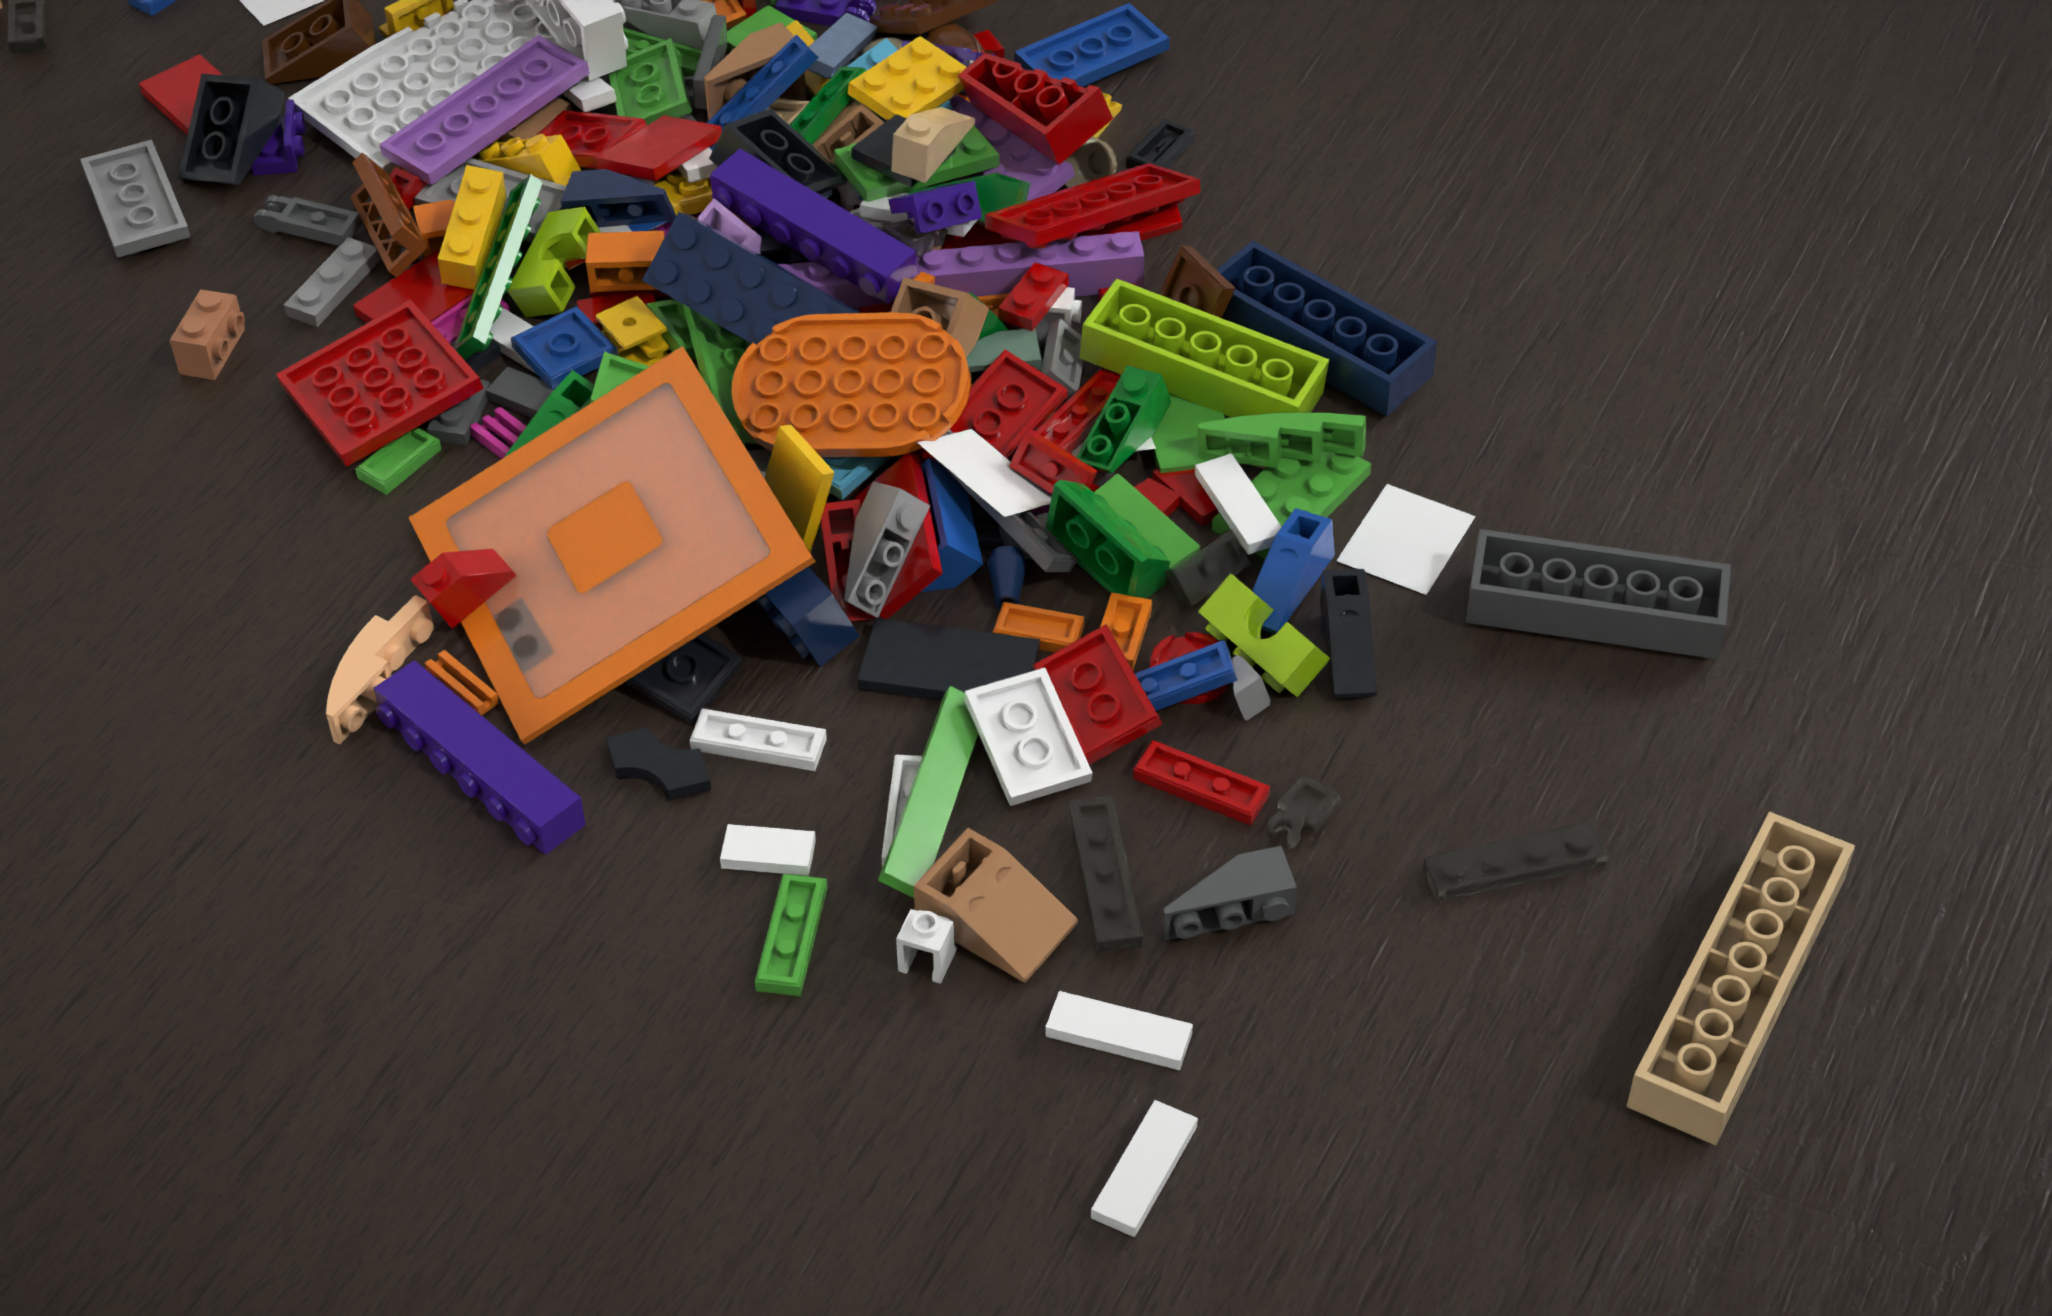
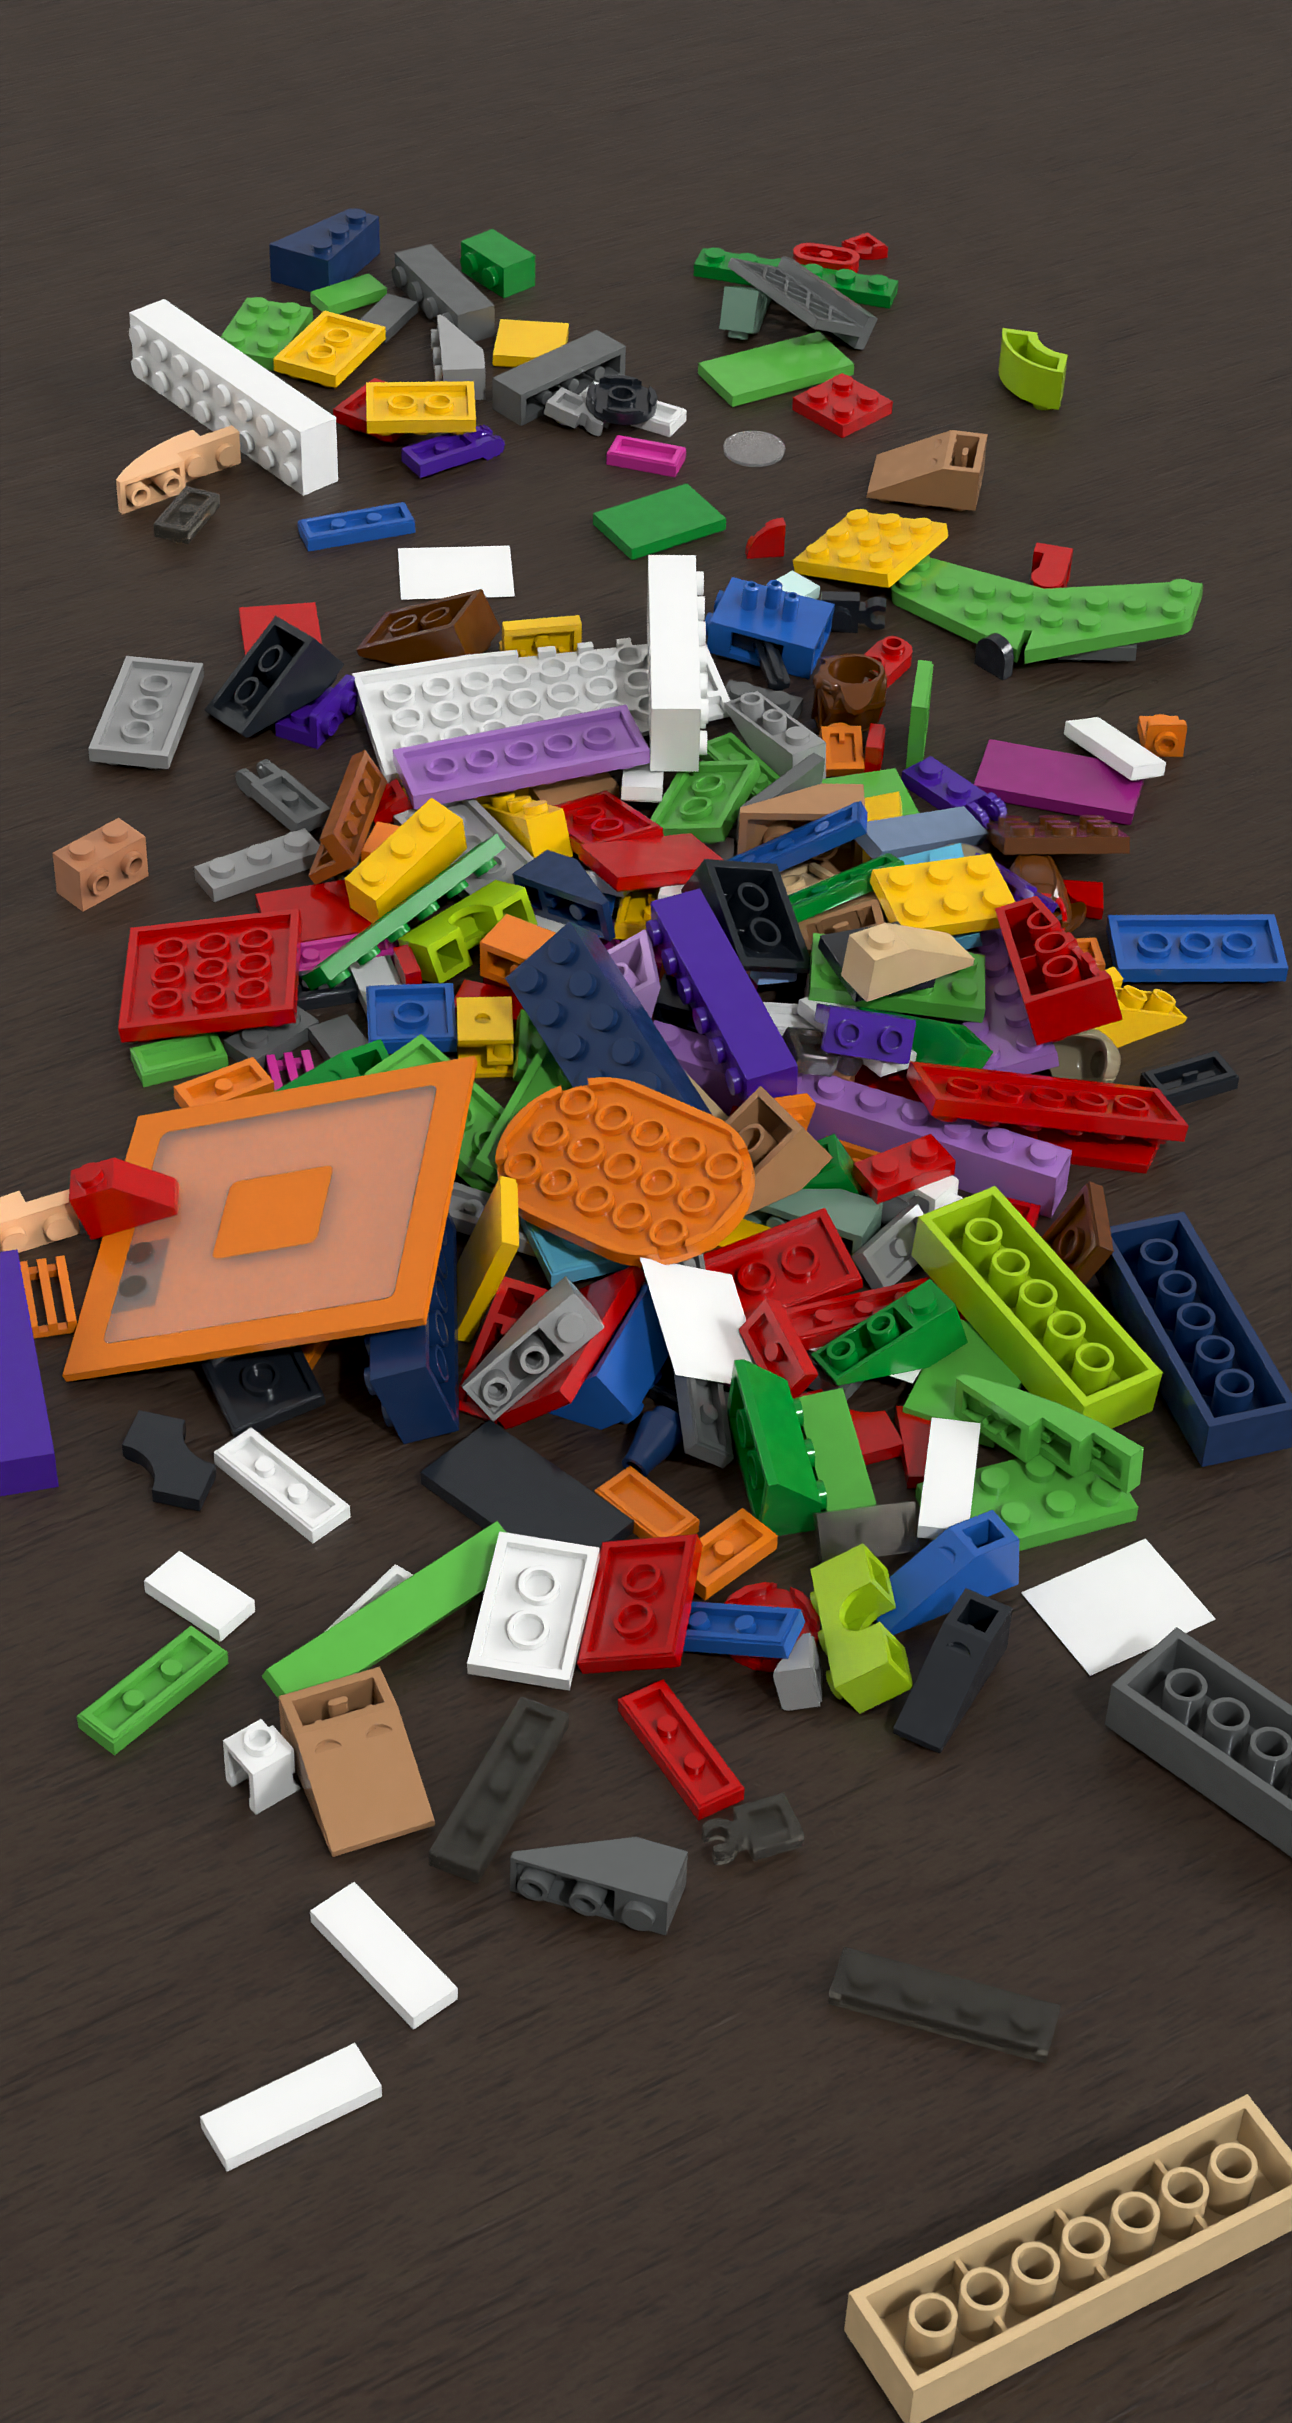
camera: 30 degrees right, 5 degrees down
(460, 463) = (228, 1083): none -> orange plate
(529, 309) = (407, 965): none -> red tile

